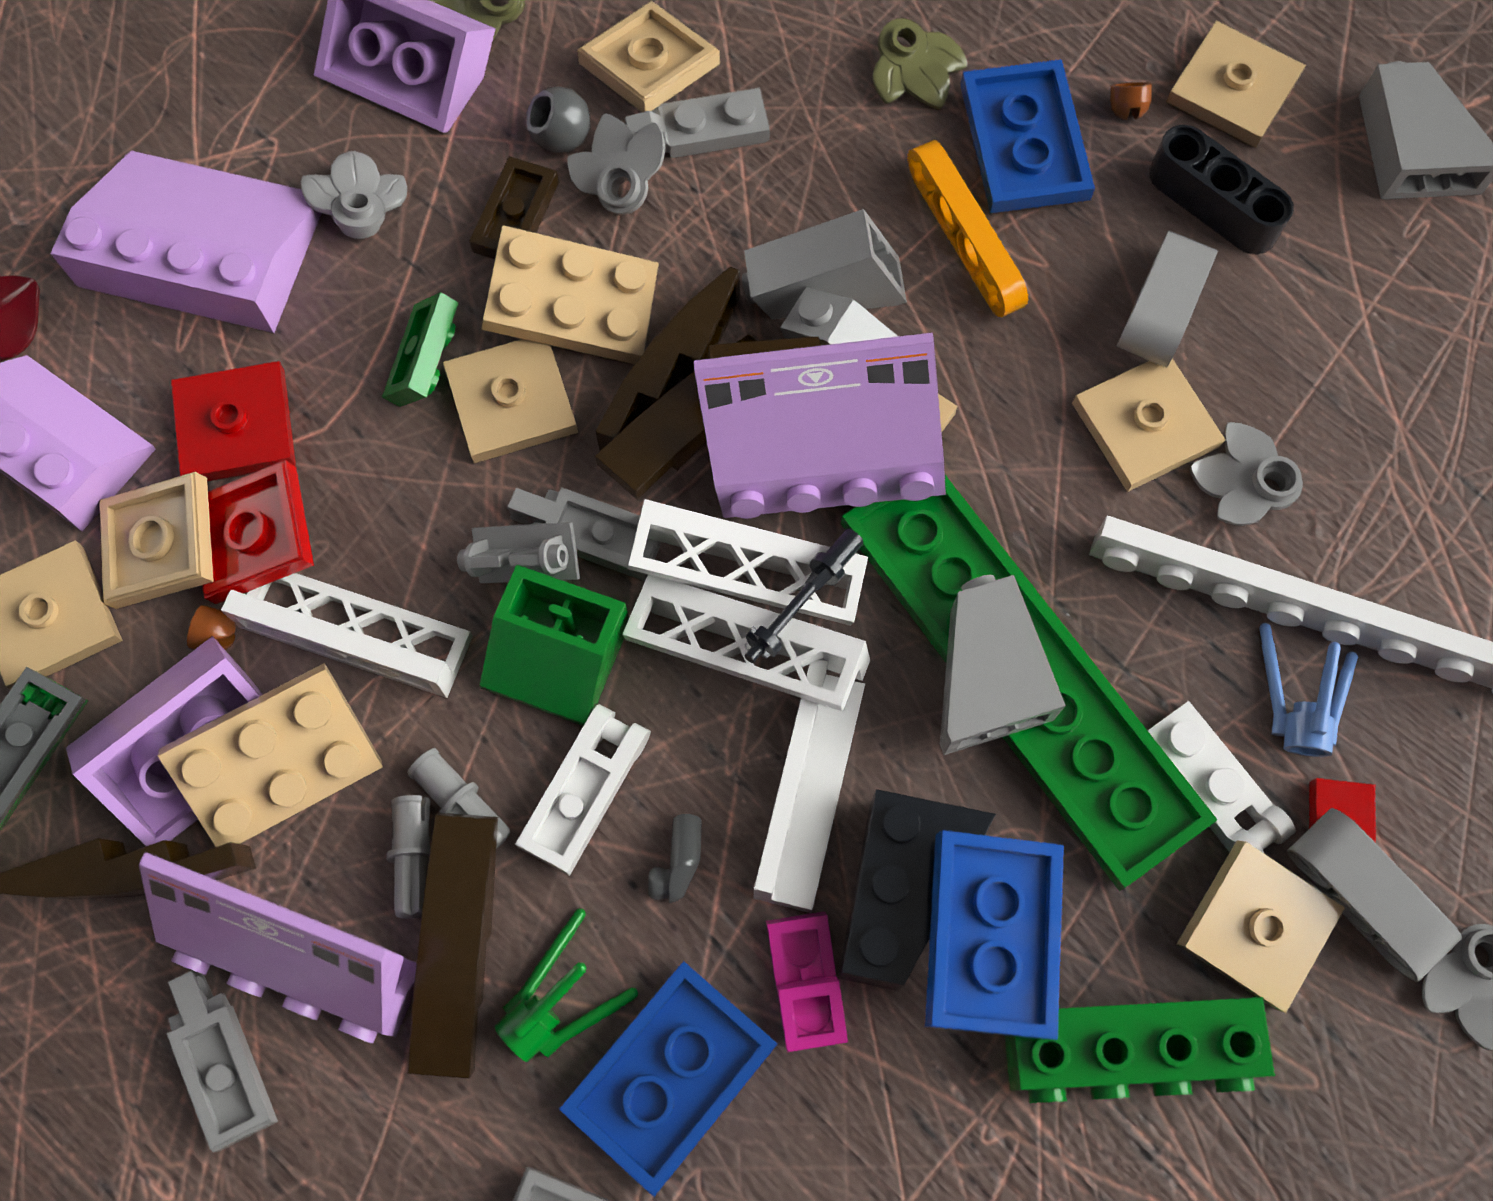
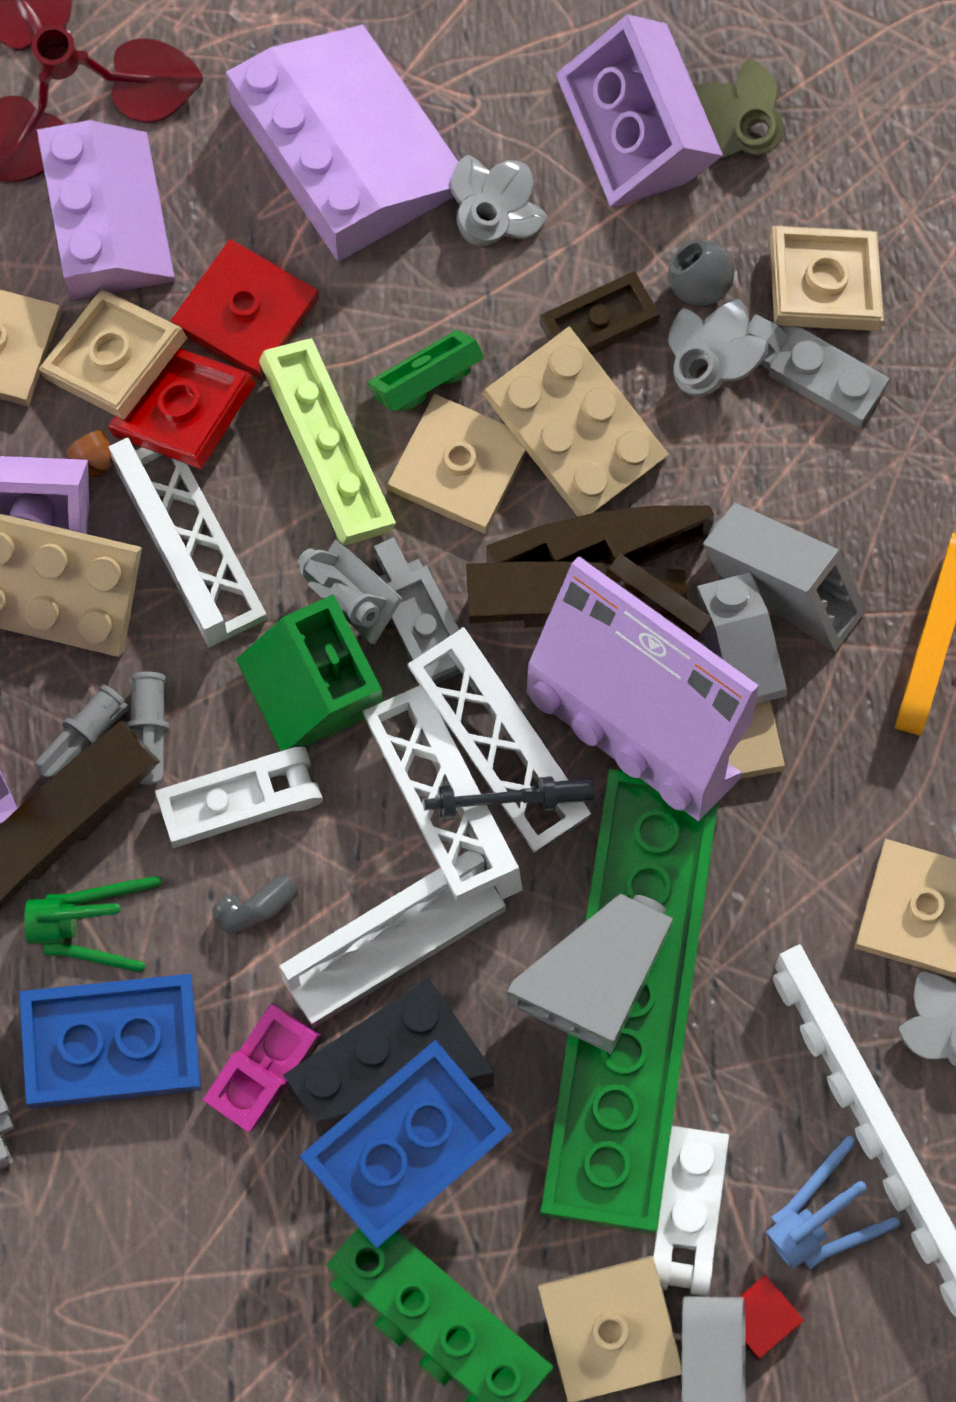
camera: 45 degrees right, 0 degrees up
(393, 463) = (327, 442): none -> yellowish green plate

